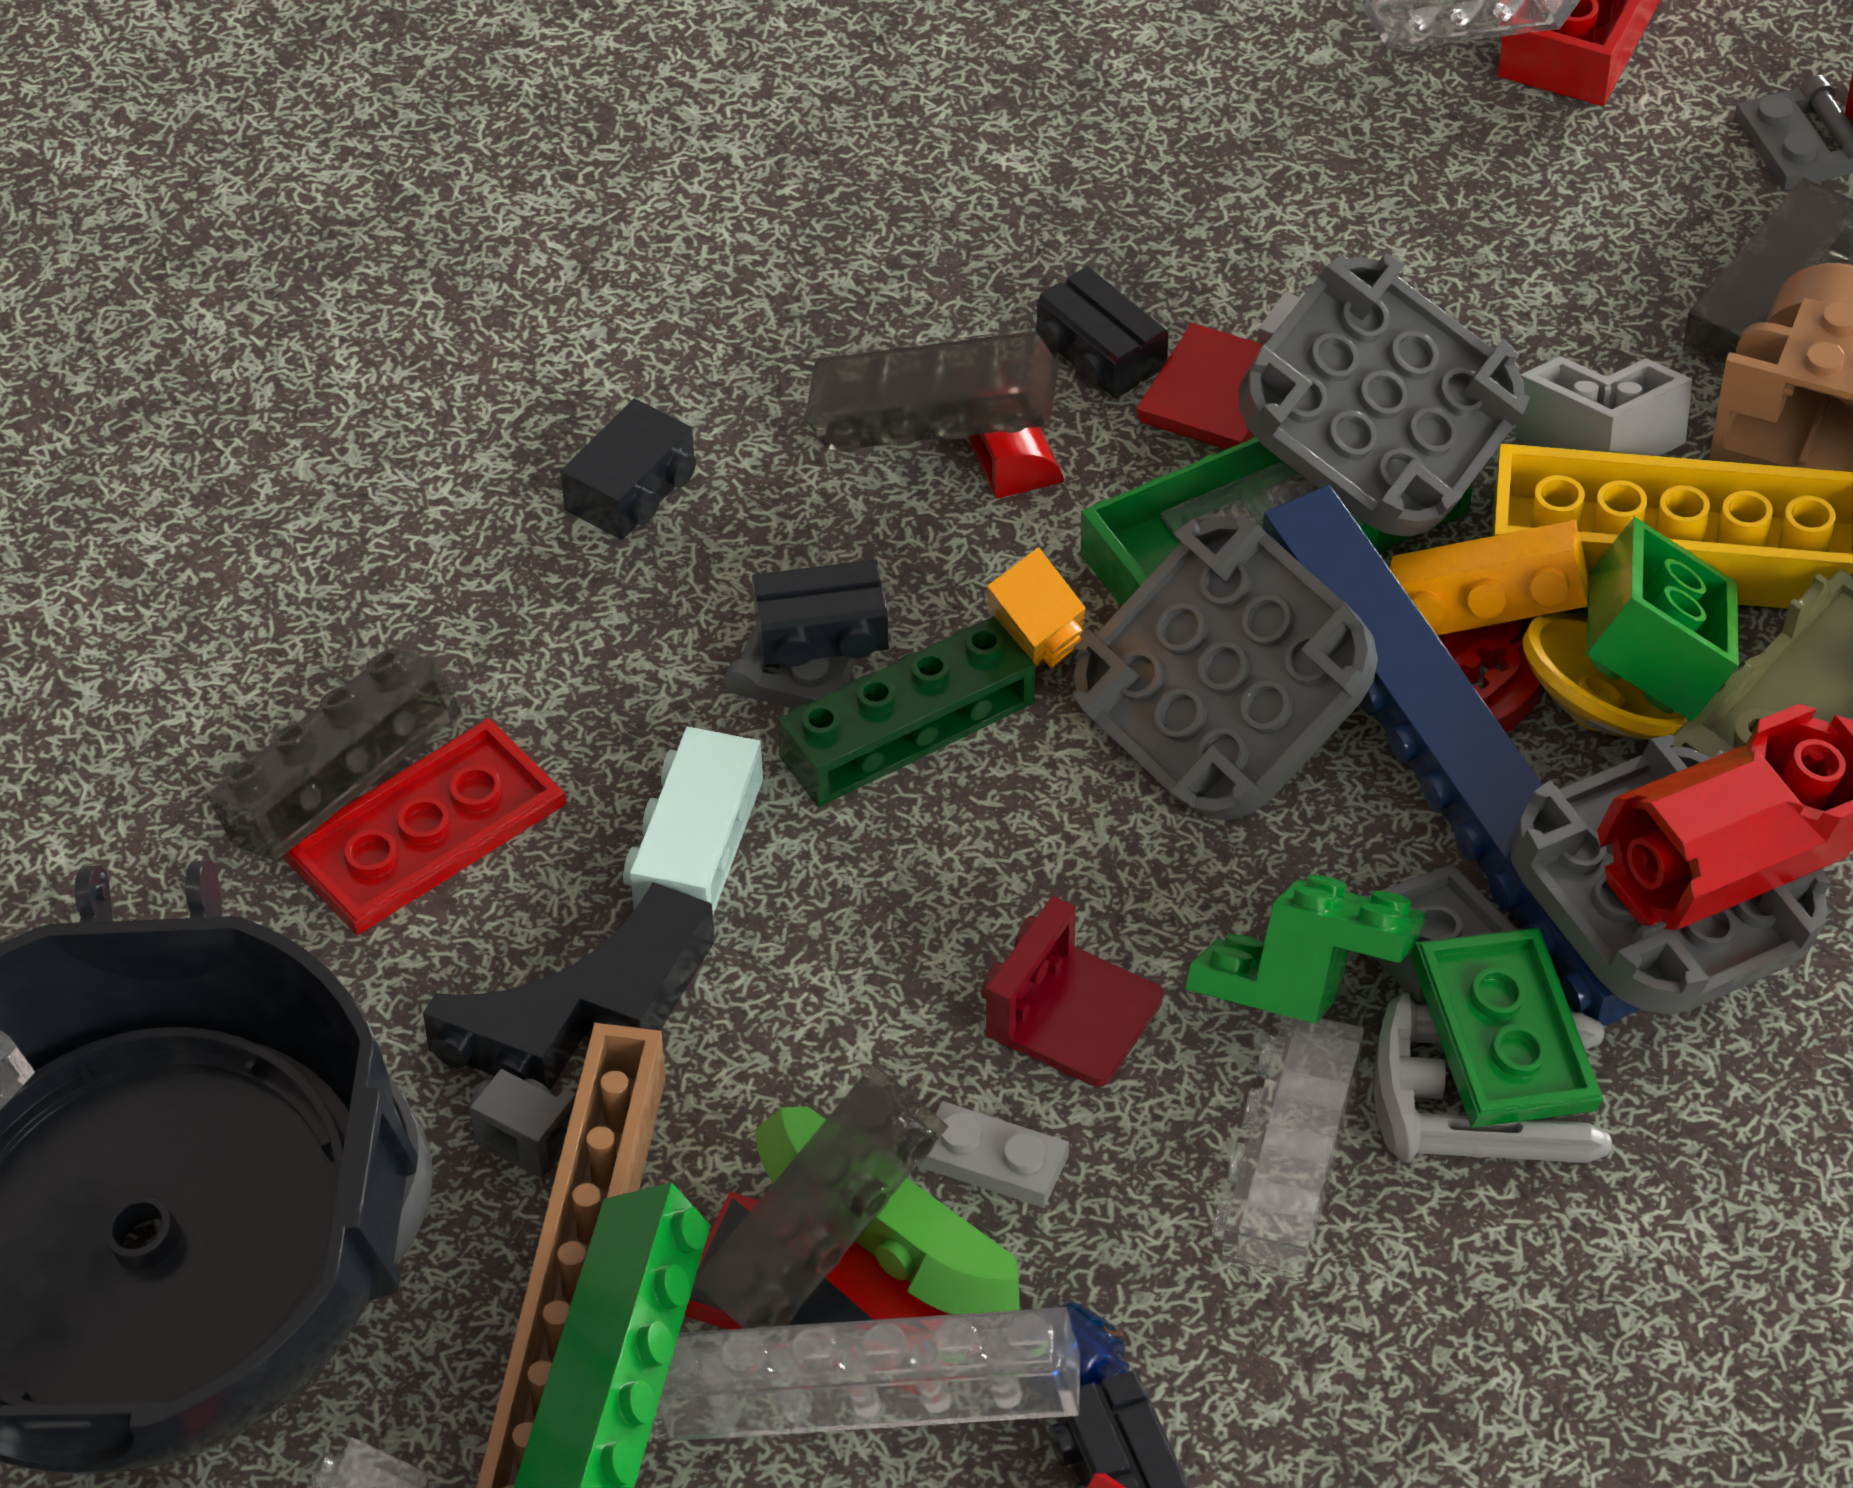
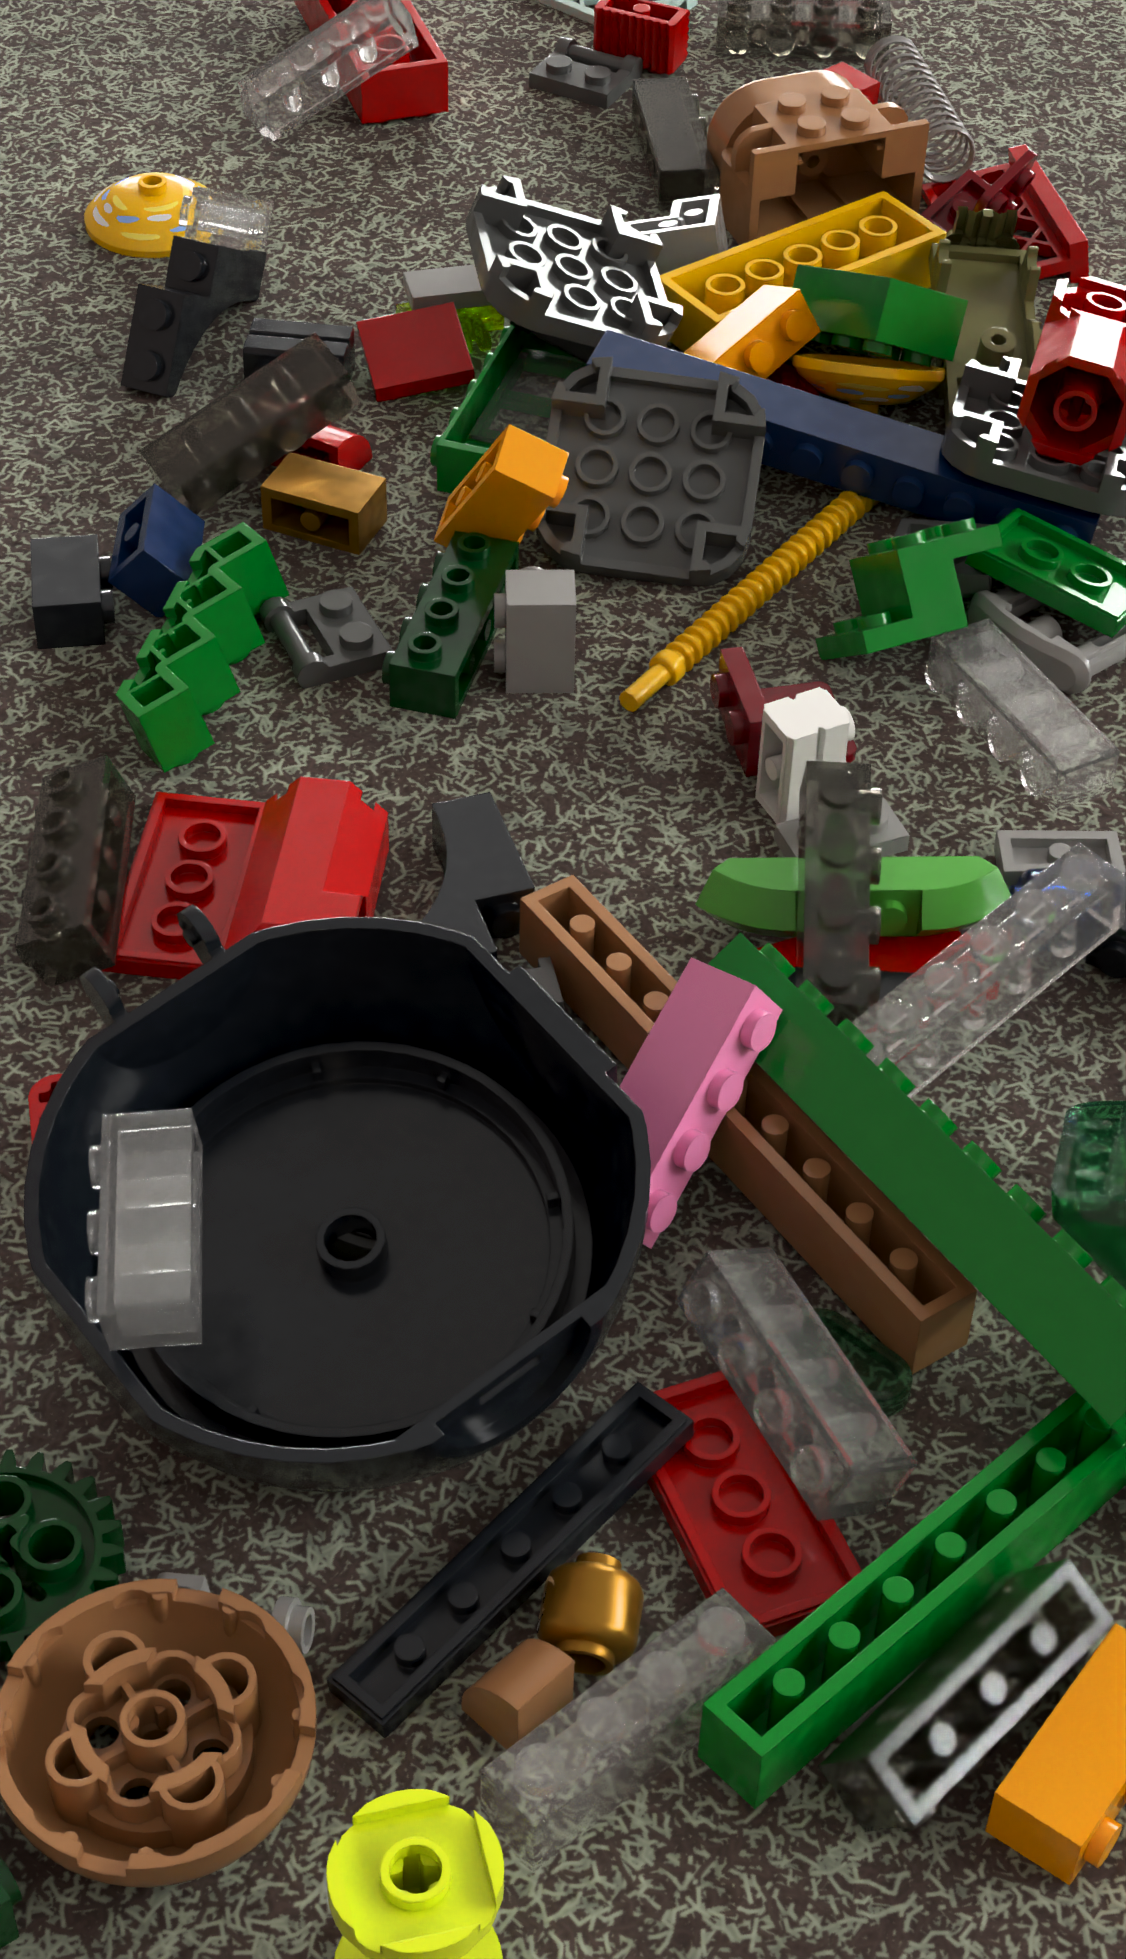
camera: 45 degrees left, 5 degrees down
(448, 911) = (312, 858): none -> red brick
(481, 1291) = (693, 1075): none -> bright pink brick
(628, 610) = (205, 631): none -> green brick
(698, 817) = (395, 759): light aqua brick -> none
(733, 476) = (154, 548): none -> dark blue brick
(820, 612) = (338, 587): black brick -> none
(942, 509) = (324, 503): none -> pearl gold brick
(944, 765) = (539, 630): none -> light grey brick
(1012, 1053) = (791, 734): none -> white brick
(1051, 878) = (750, 594): none -> yellow hose
(1077, 197) = (173, 317): none -> black arch
(1153, 1315) = (1031, 849): none -> light grey plate
(1165, 140) = (226, 218): none -> clear brick
(1173, 84) = (139, 214): none -> yellow dish

